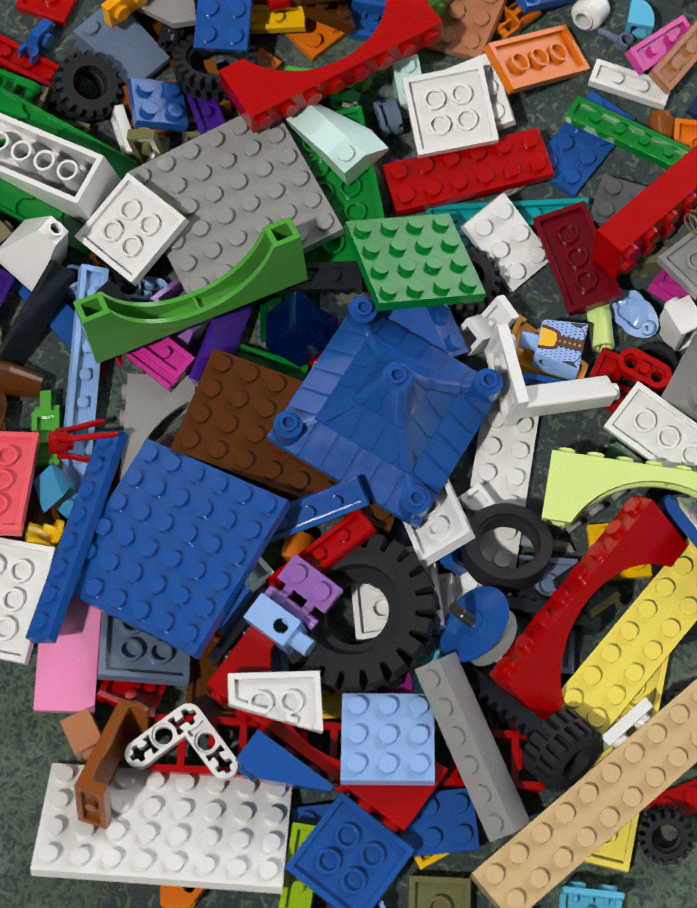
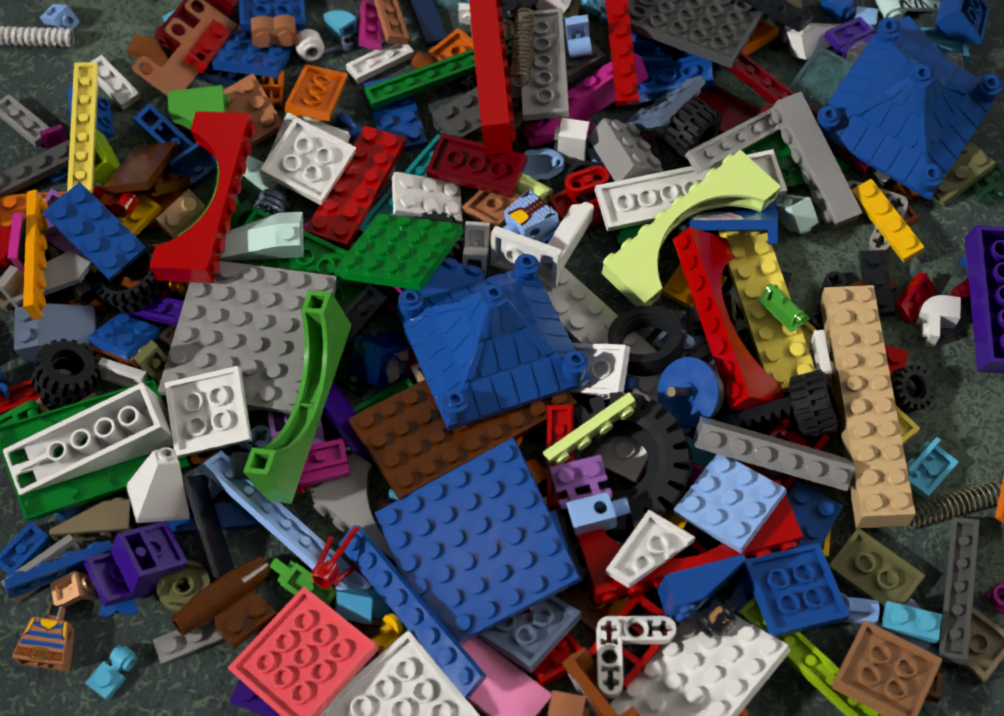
camera: 50 degrees left, 10 degrees down
(264, 804) = (715, 617): none -> black head
(314, 50) = (180, 214): none -> tan plate
(322, 507) = (530, 420): blue plate -> none
(366, 565) = (596, 425): none -> yellowish green plate
(476, 498) = (595, 335): white tile -> none
(535, 106) = (345, 120): none -> blue arm
(542, 303) = (488, 208): none -> nougat tile
(647, 651) = (783, 308): none -> bright green hinge

